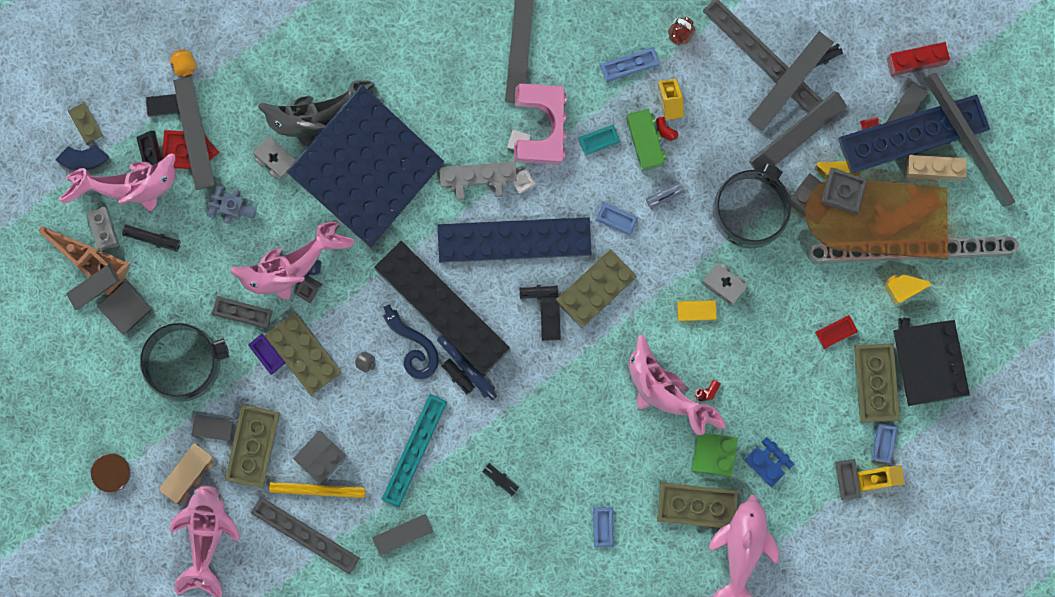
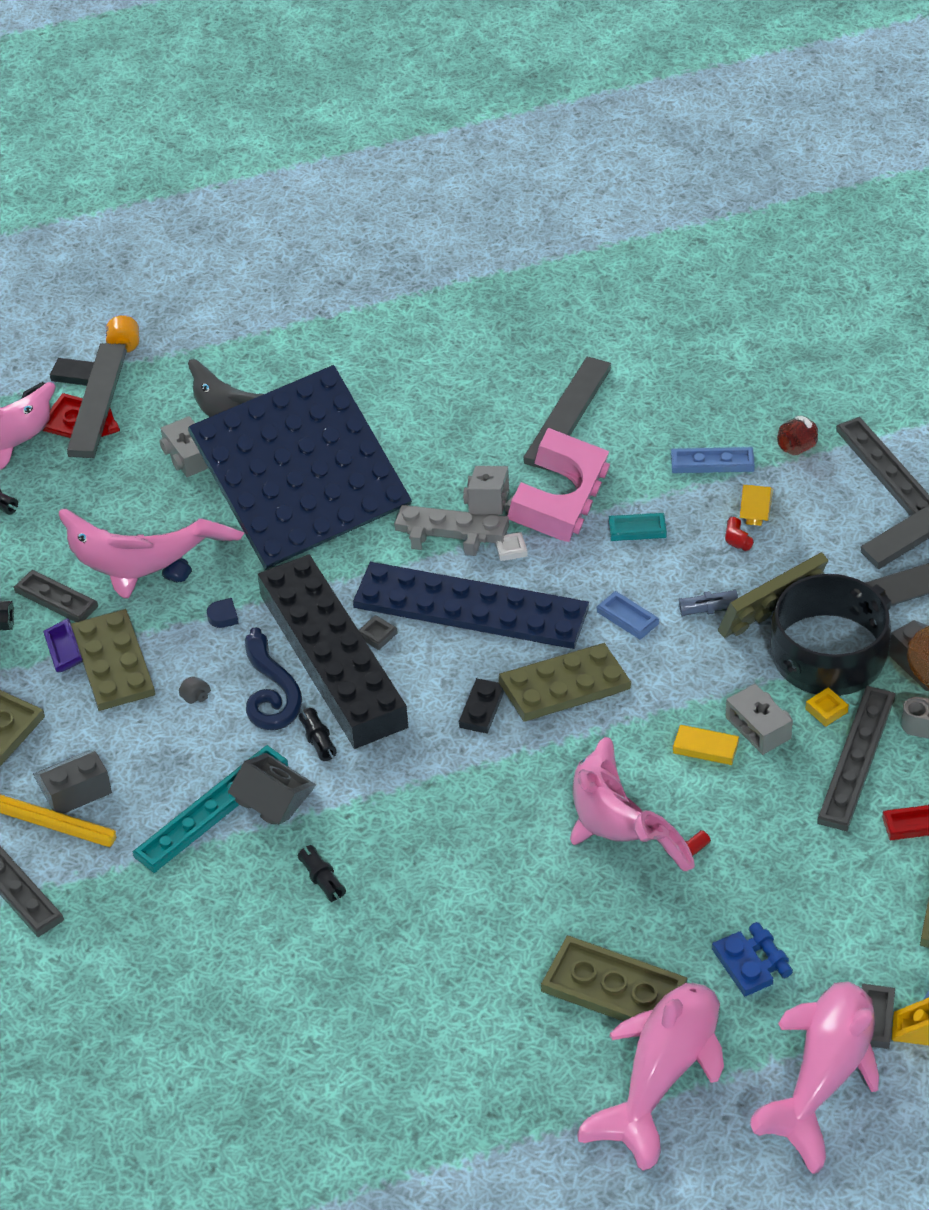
camera: 25 degrees right, 35 degrees down
(231, 206) = (102, 481): sand blue piece -> none
(308, 289) = (158, 592): dark grey slope -> none
(357, 295) = (222, 613): none -> dark blue tile
(402, 534) = (141, 905): dark grey tile -> none
(449, 430) = (270, 788): none -> dark grey slope
(463, 280) = (378, 632): none -> dark grey tile
(476, 378) = (342, 738): dark blue plant -> none
(494, 143) = (487, 490): none -> light grey brick
(538, 292) = (477, 666): black pin -> none
(603, 527) = (452, 977): medium blue tile -> none
(646, 139) = (704, 536): bright green brick -> none
(704, 190) = (761, 601): none -> olive plate
(715, 455) = (670, 924): bright green slope -> none
(762, 260) = (827, 706): none -> yellow plate
(789, 292) = (856, 759): none -> dark grey tile
(837, 516) = (835, 1045): none -> bright pink animal

